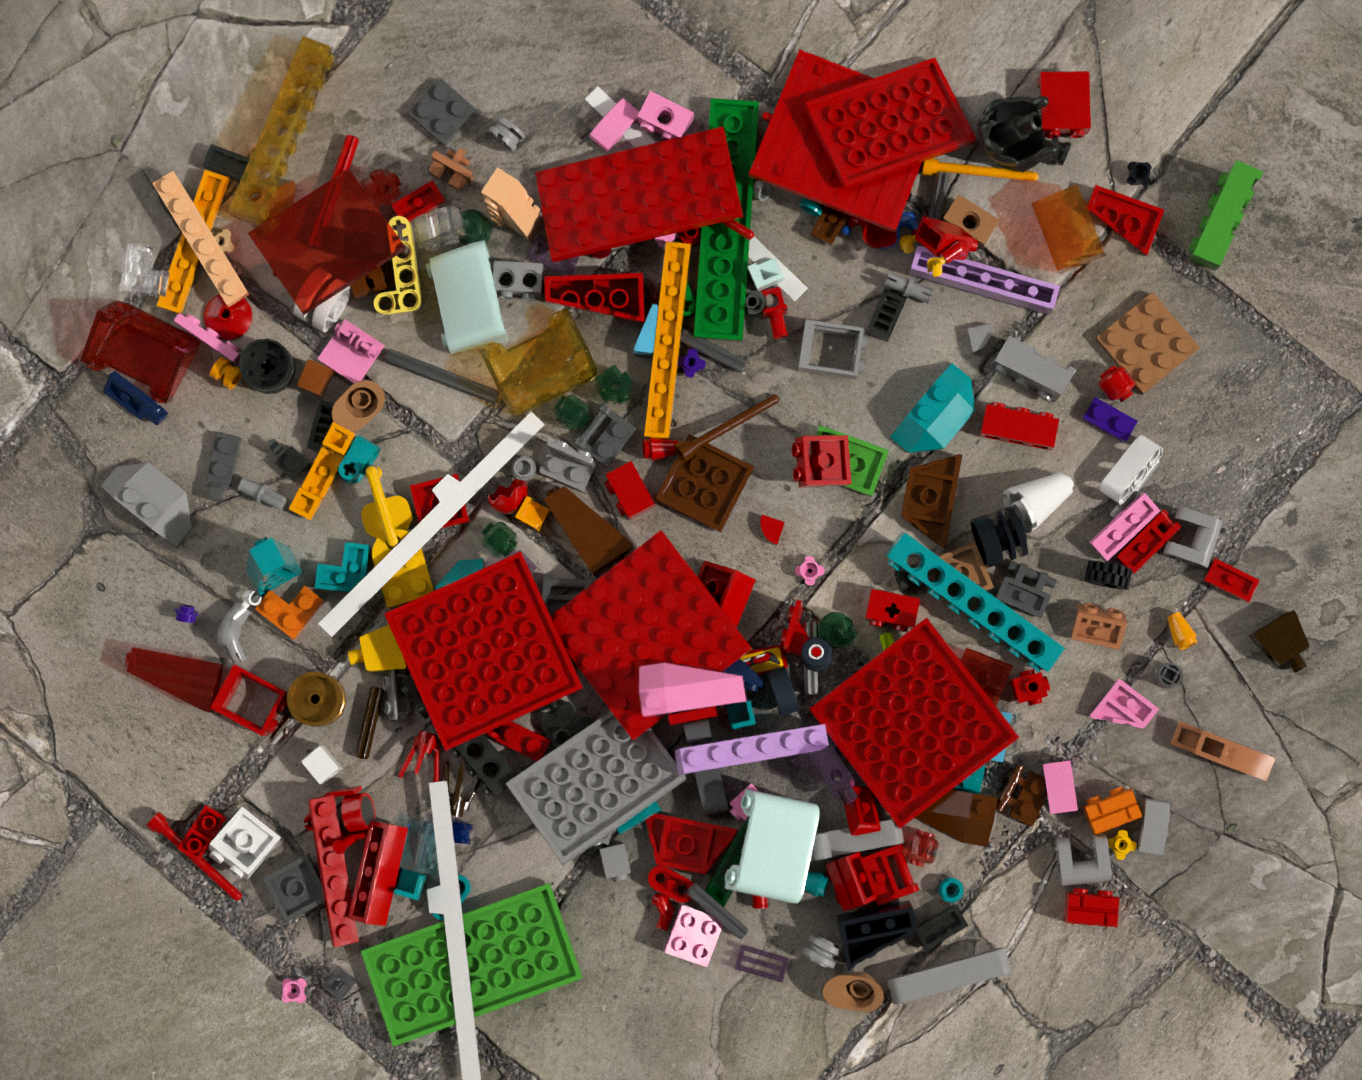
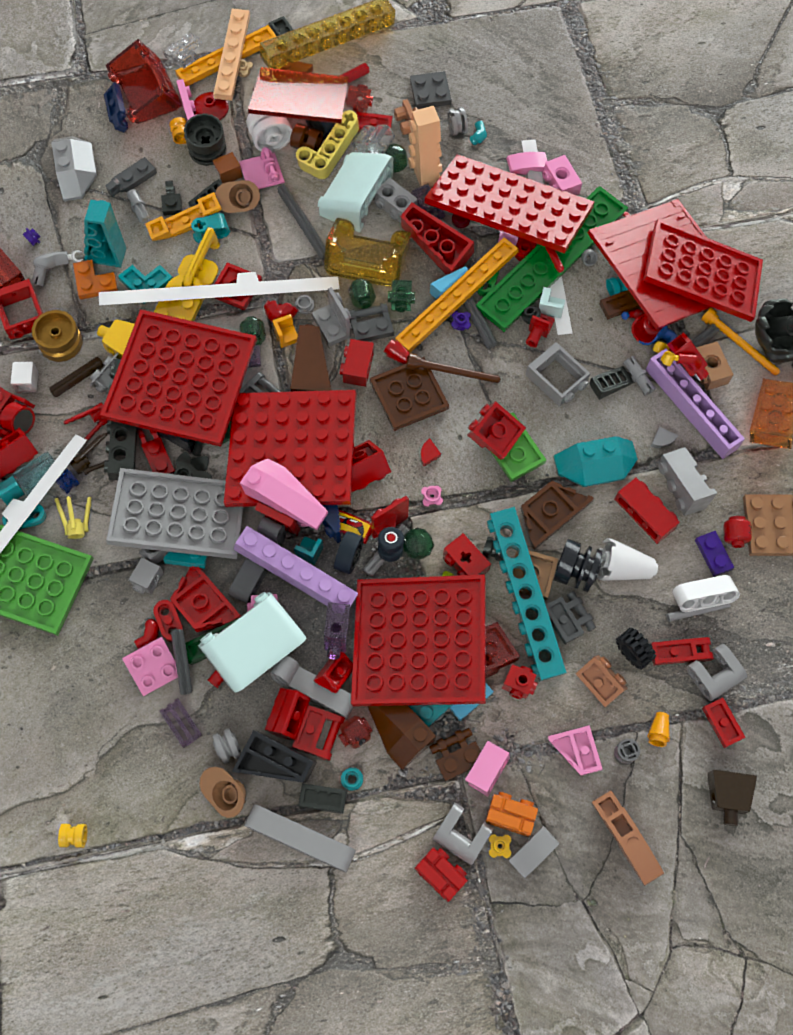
camera: 30 degrees right, 15 degrees down
(507, 869) = (74, 528): none -> light yellow plant
(539, 128) = (480, 134): none -> teal arm
(816, 884) = (261, 695): teal cone -> none
(1124, 526) = (673, 627): bright pink plate -> none

